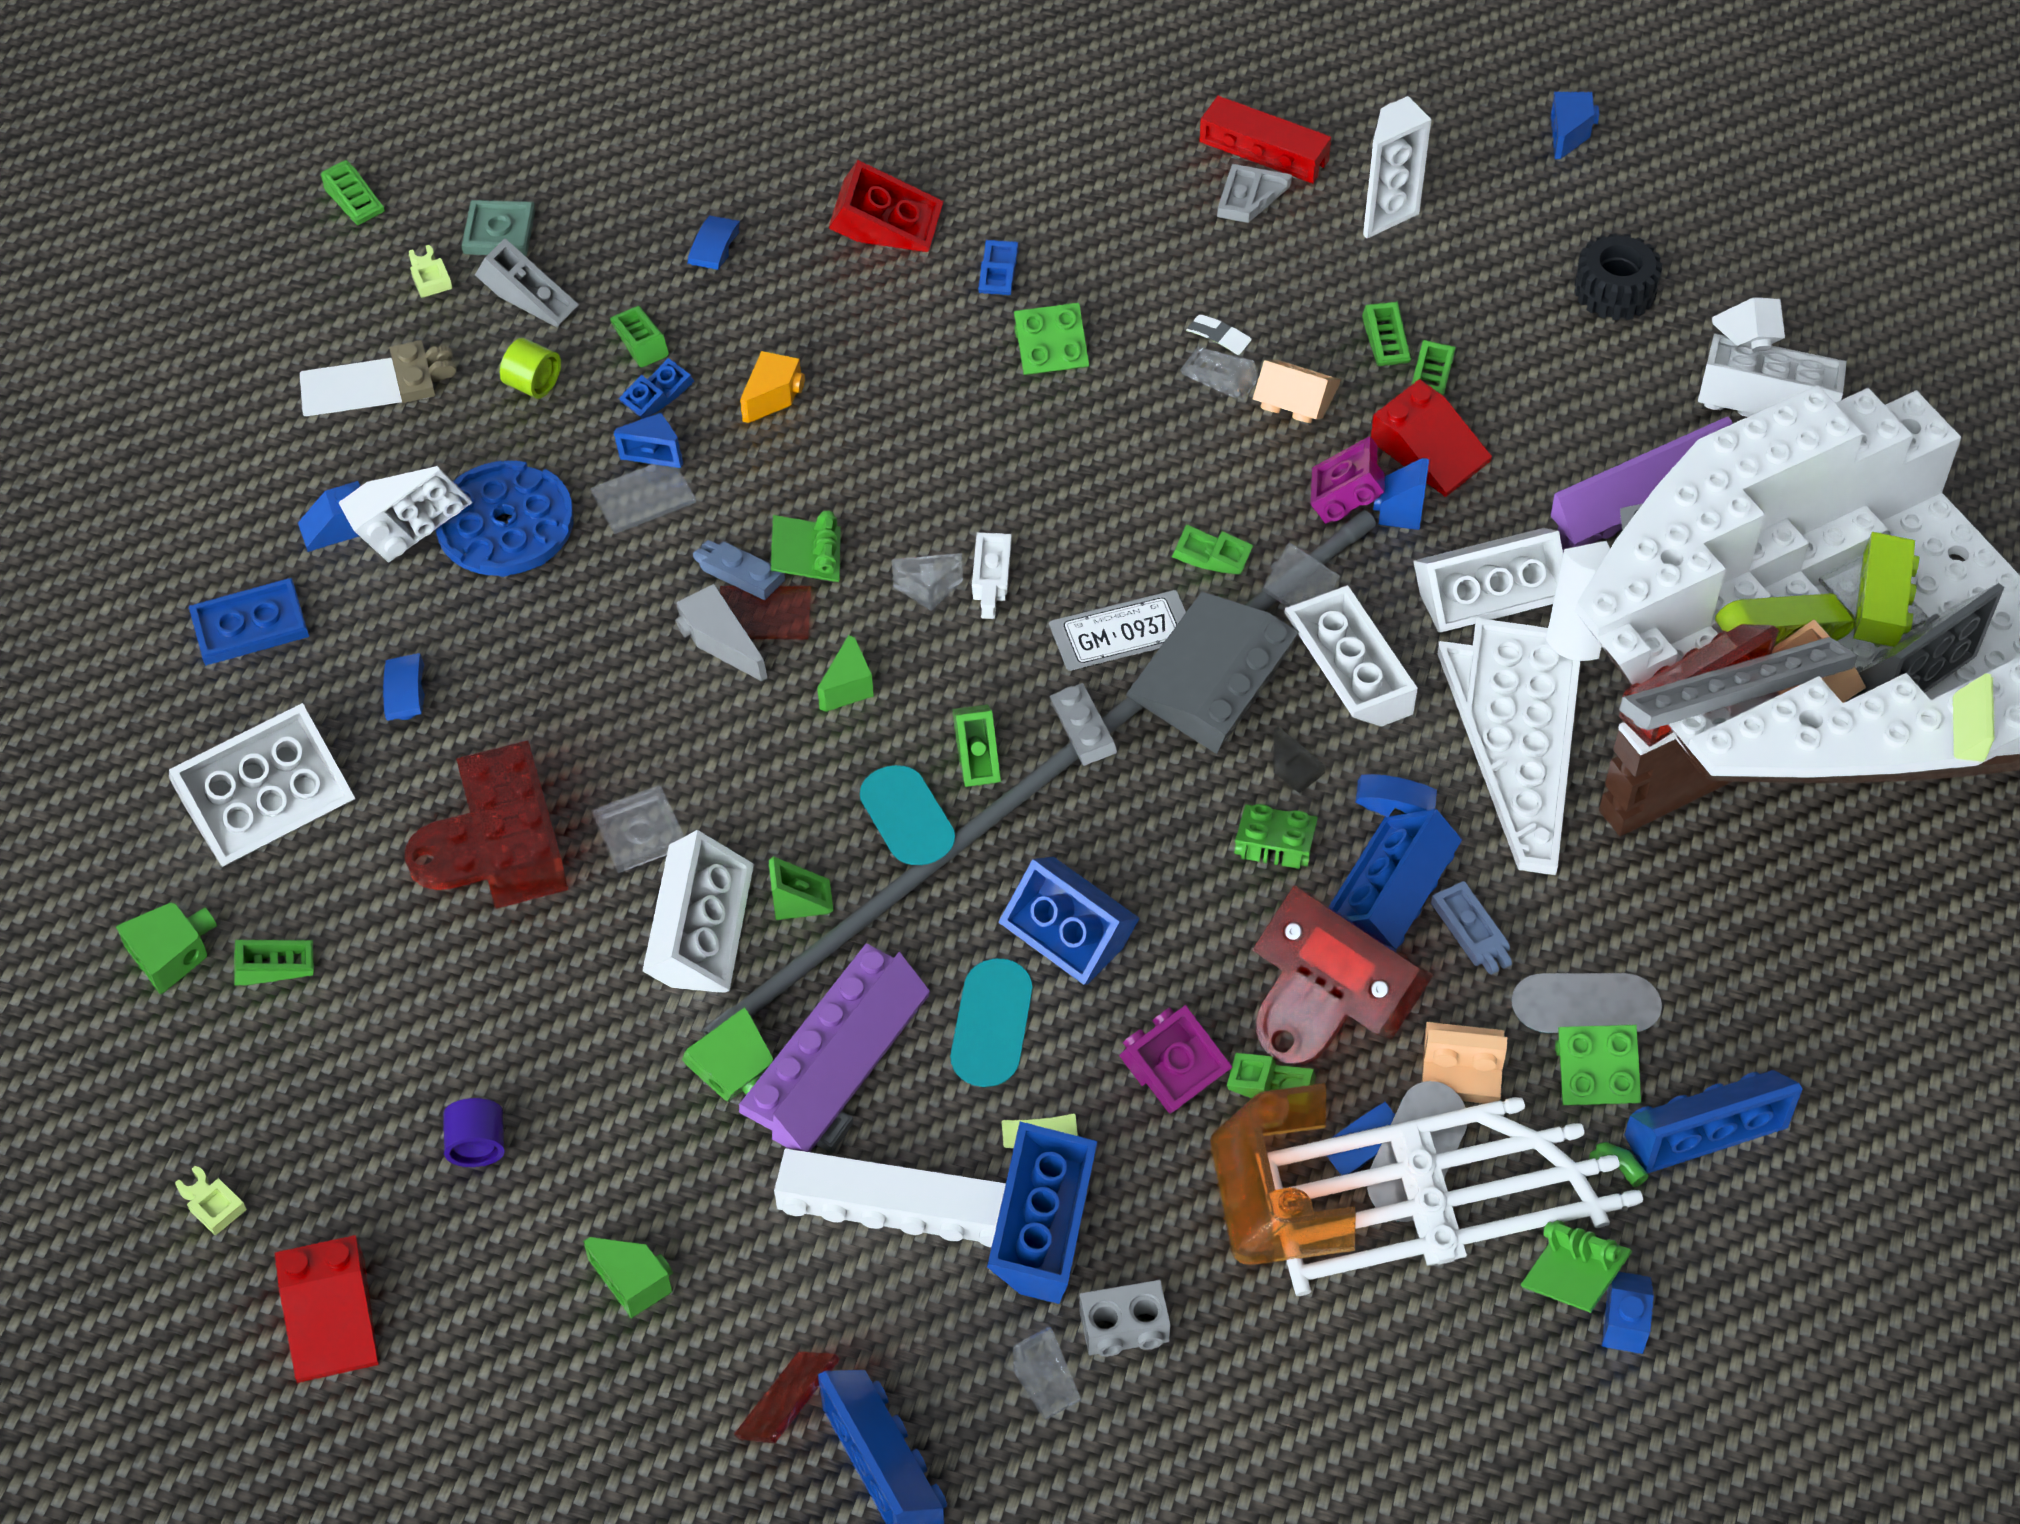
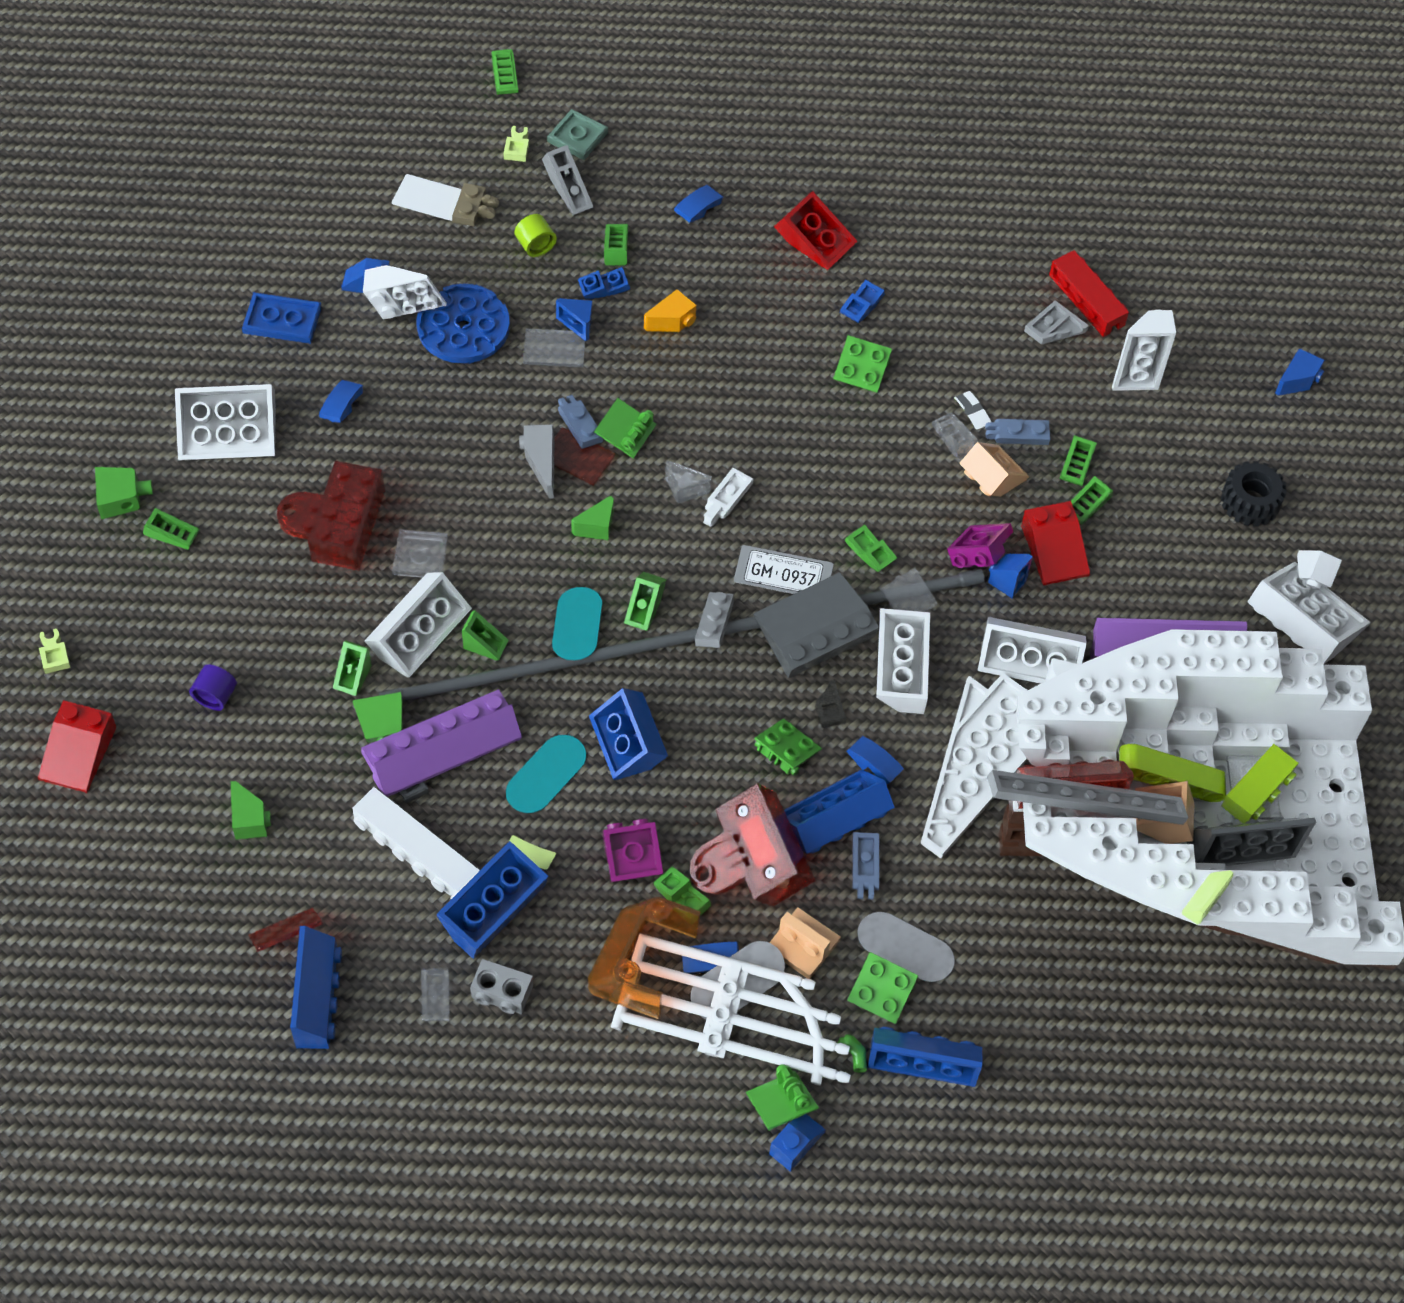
camera: 25 degrees right, 5 degrees up
(648, 1014) = (352, 668): none -> bright green slope
(1293, 333) = (1019, 431): none -> sand blue hinge

